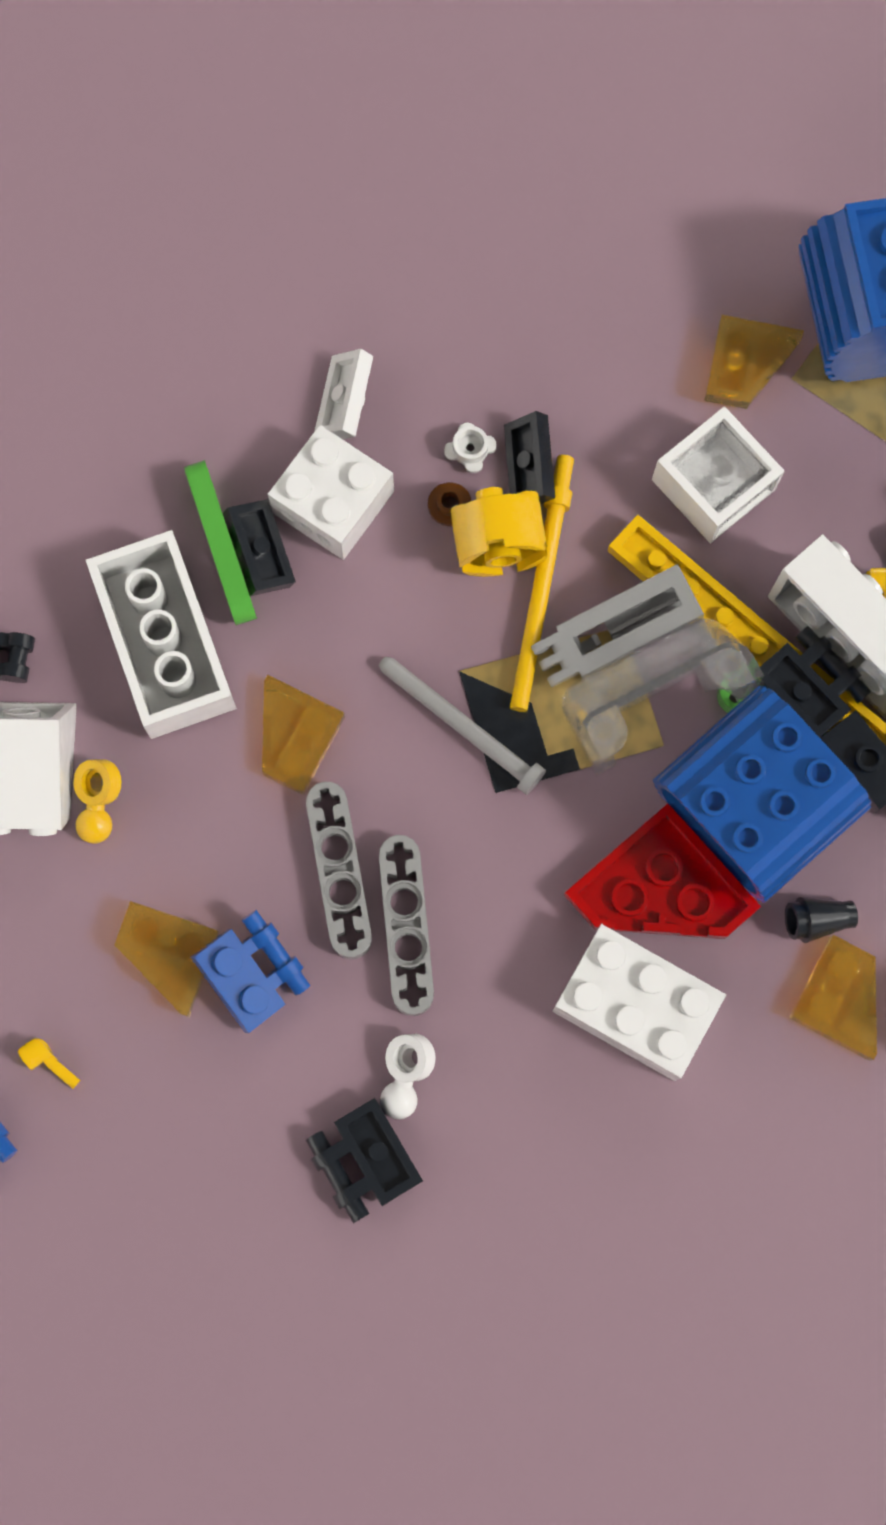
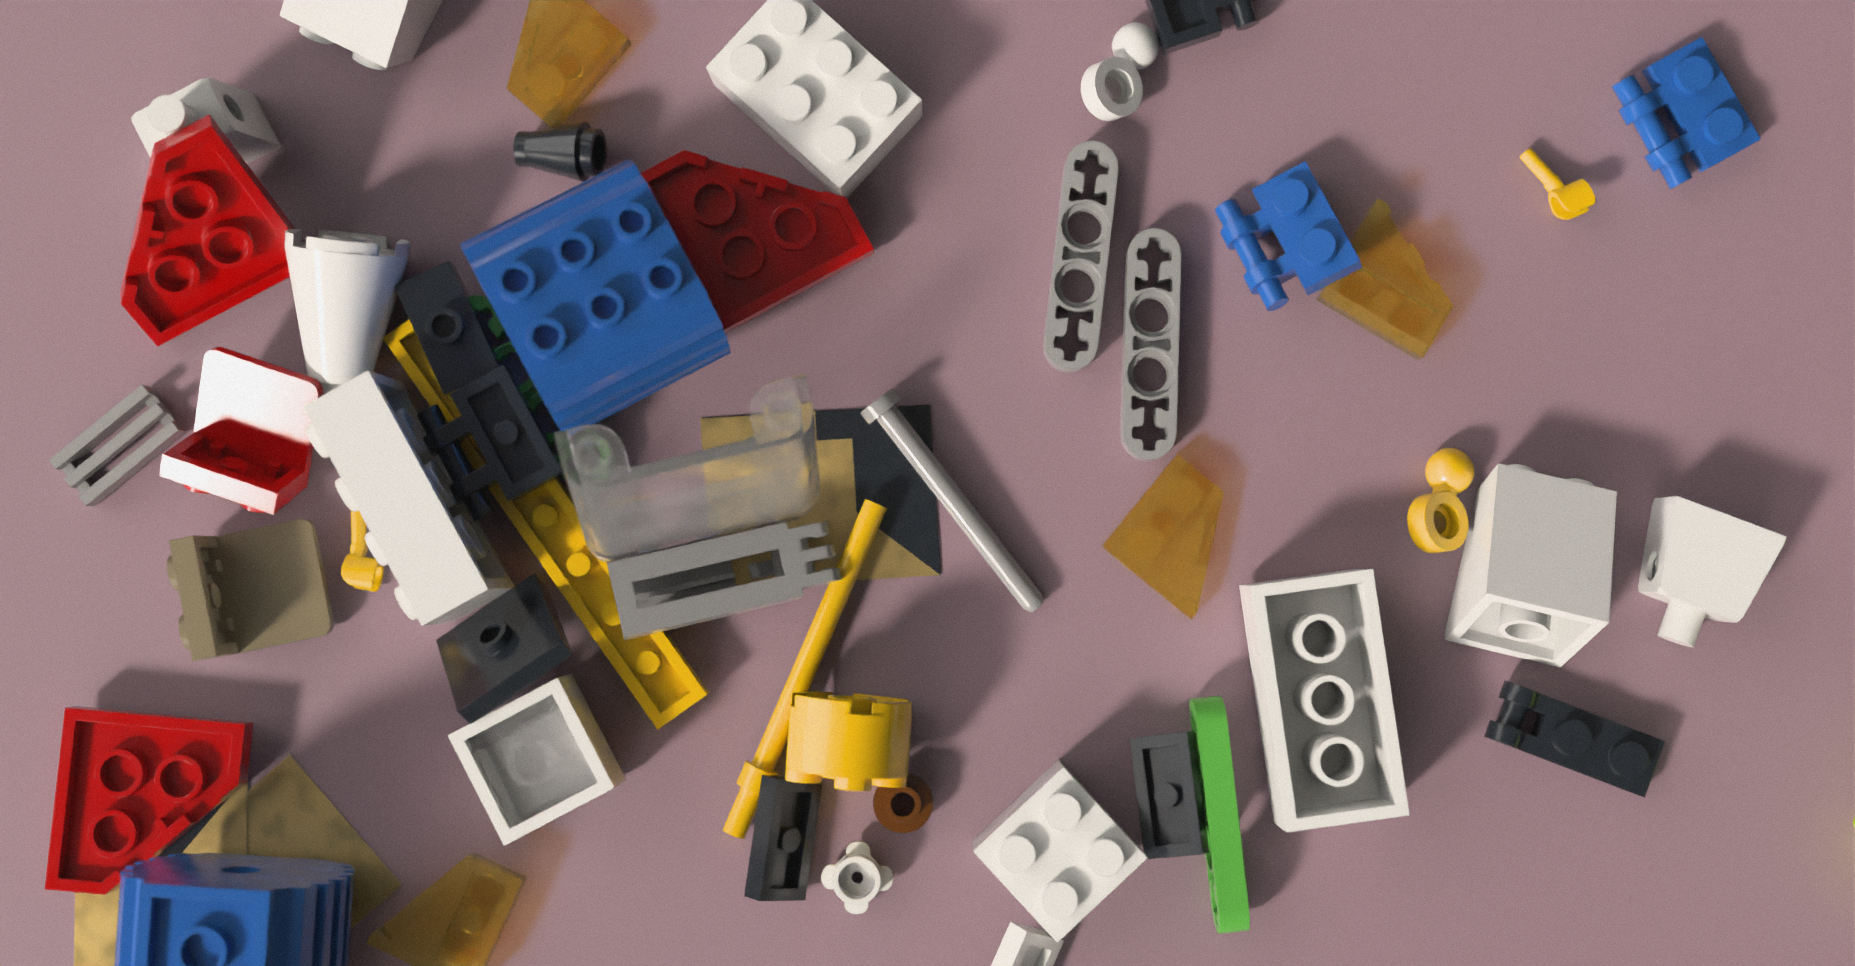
camera: 160 degrees left, 10 degrees up
(761, 543) = (503, 648): none -> black plate

